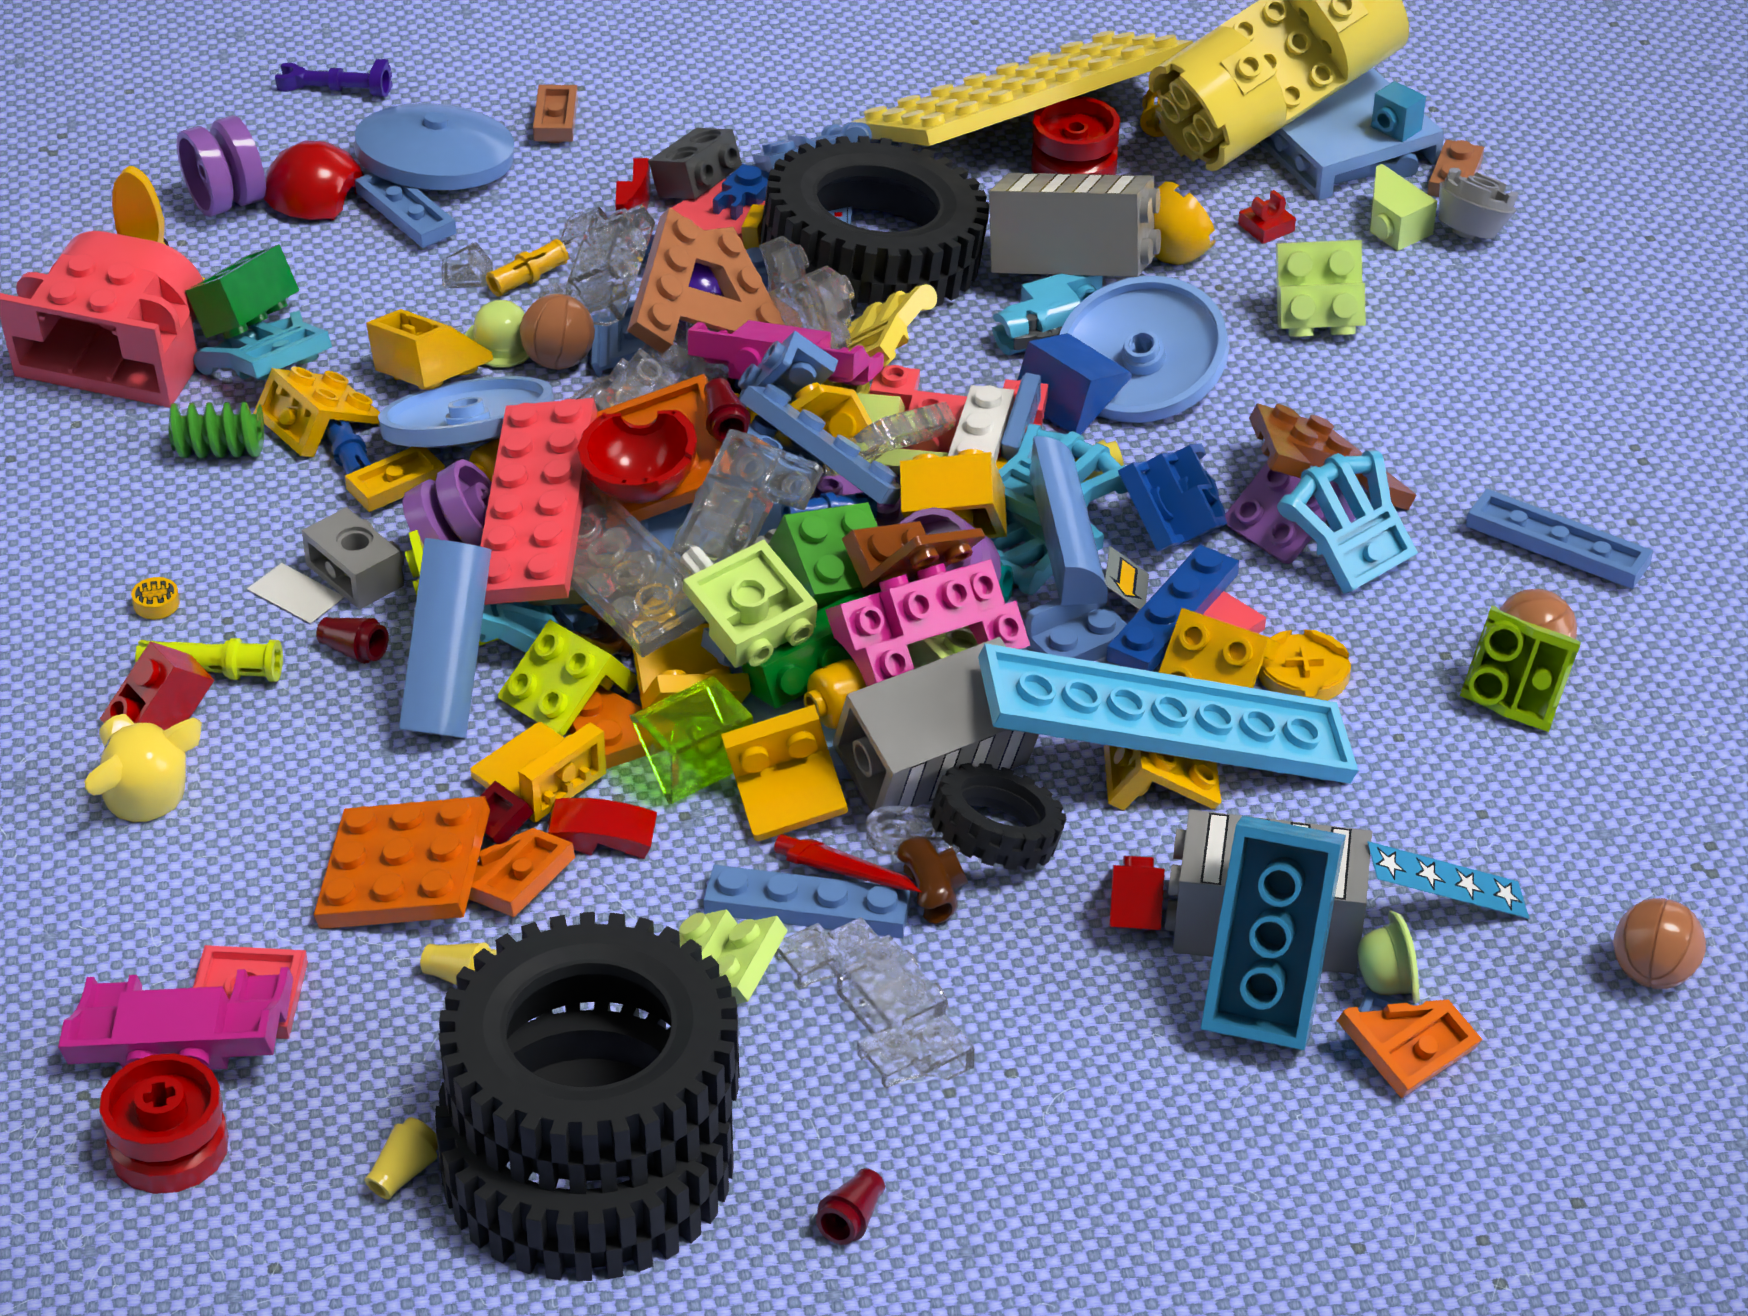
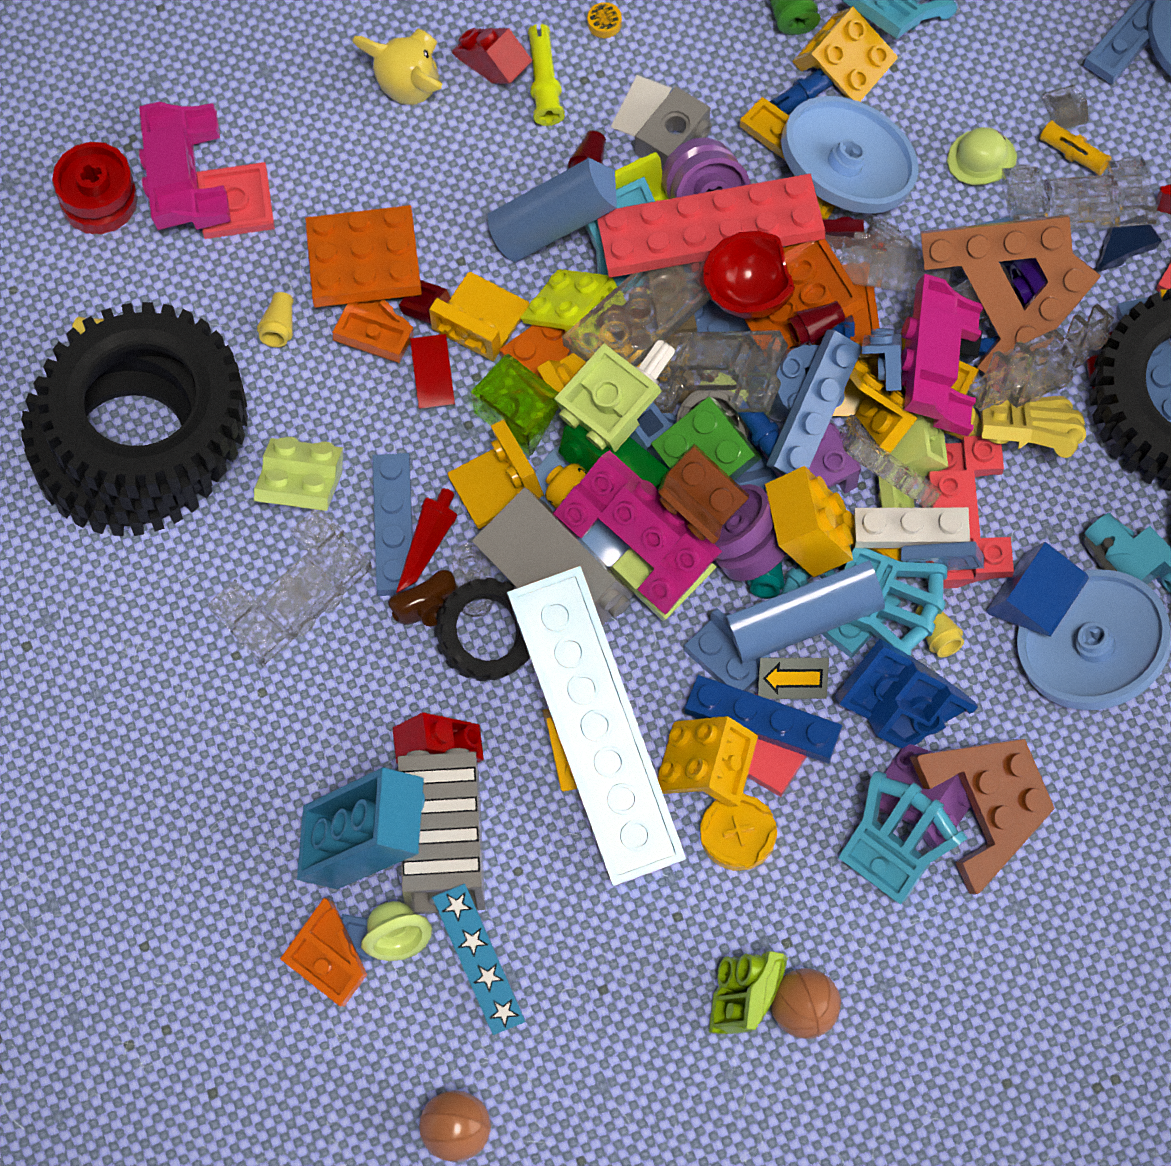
camera: 80 degrees right, 25 degrees up
(422, 349) = (928, 104): yellow slope -> none
(557, 331) = (976, 190): nougat piece -> none
(848, 1209) = (108, 610): dark red cone -> none
(1559, 538) = (949, 1018): medium blue plate -> none

